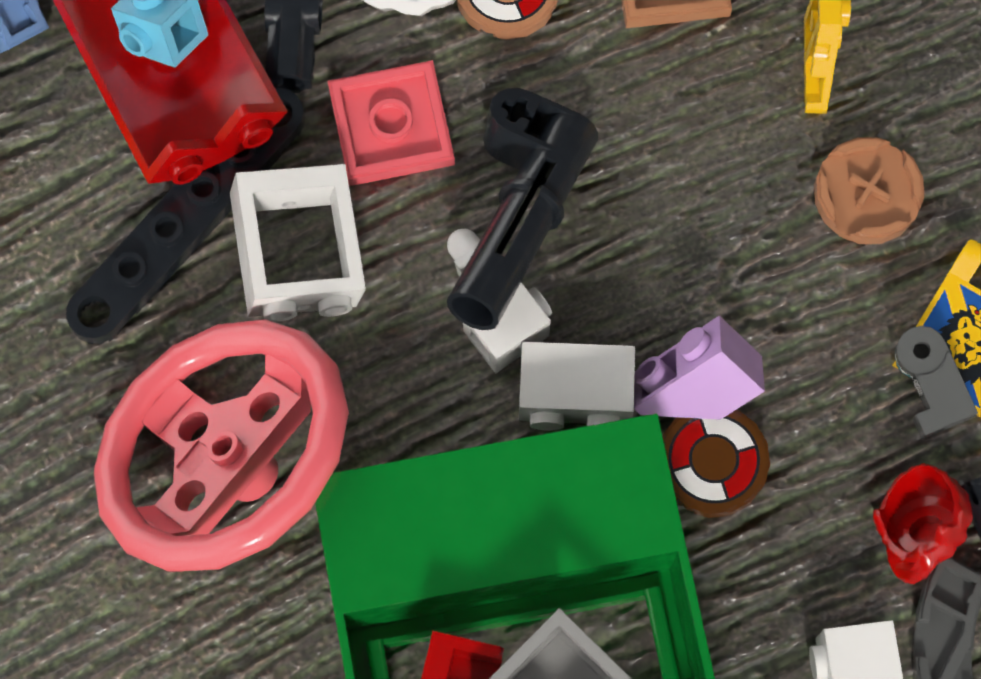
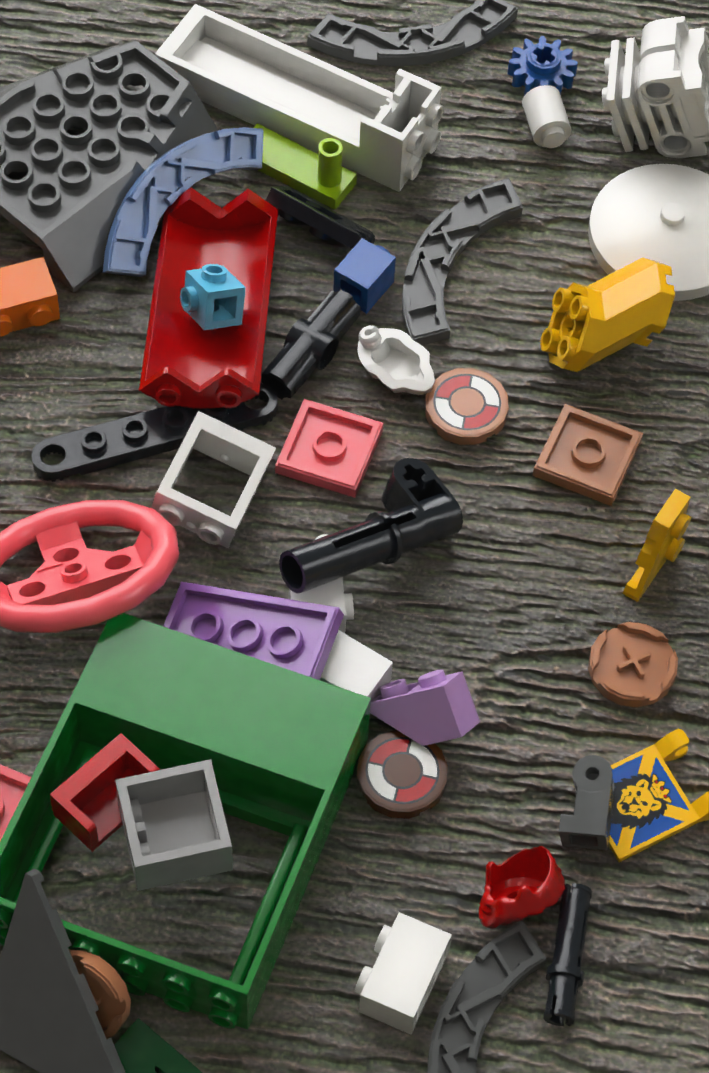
camera: 30 degrees right, 15 degrees down
(461, 399) = (257, 625): none -> medium lavender tile

